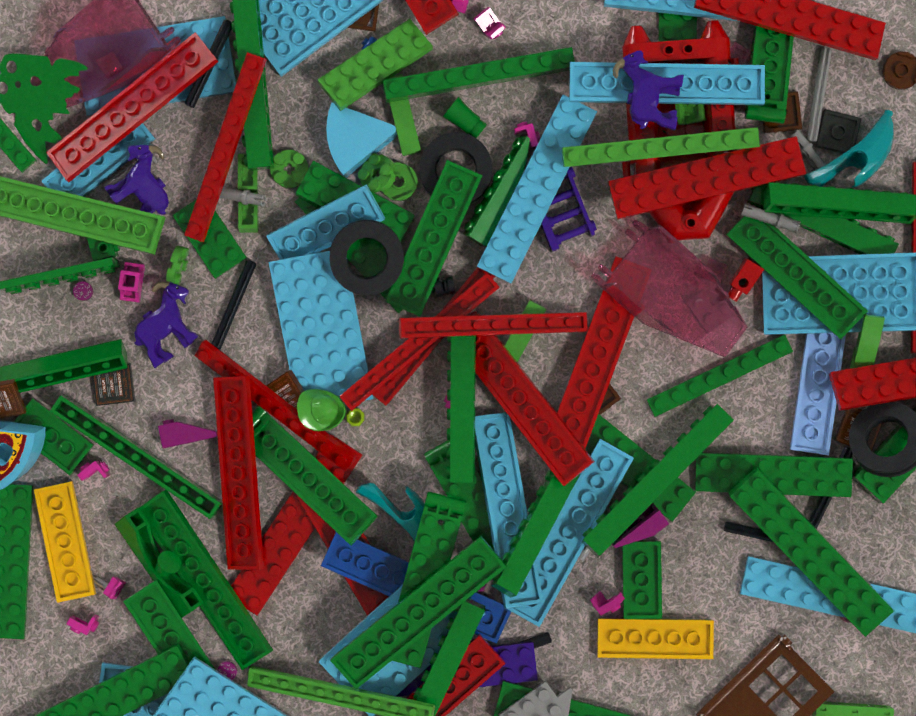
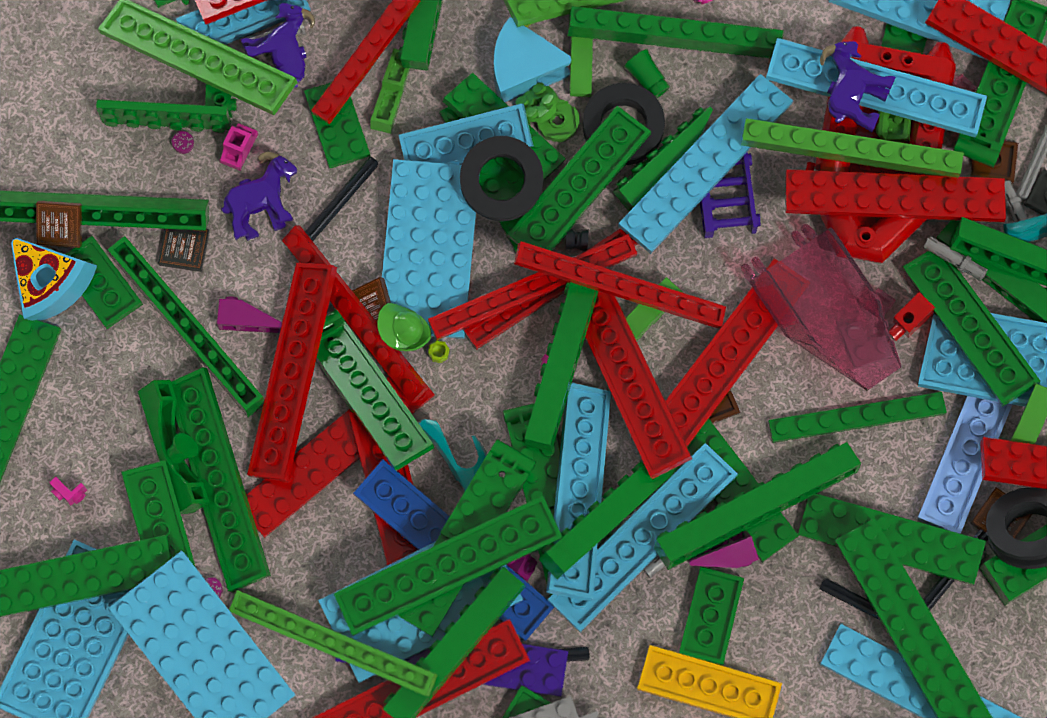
camera: 15 degrees right, 15 degrees down
(64, 541) = (76, 397): yellow plate -> none
(89, 469) = (131, 327): dark pink bracket -> none
(112, 588) = (113, 462): dark pink piece -> none
(178, 264) = (294, 139): bright green plate -> none
(245, 196) = (388, 89): light grey pin -> none
(281, 161) = (437, 67): bright green plate -> none
(530, 132) = (711, 100): dark pink bracket -> none
(603, 606) = (668, 632): dark pink bracket -> none

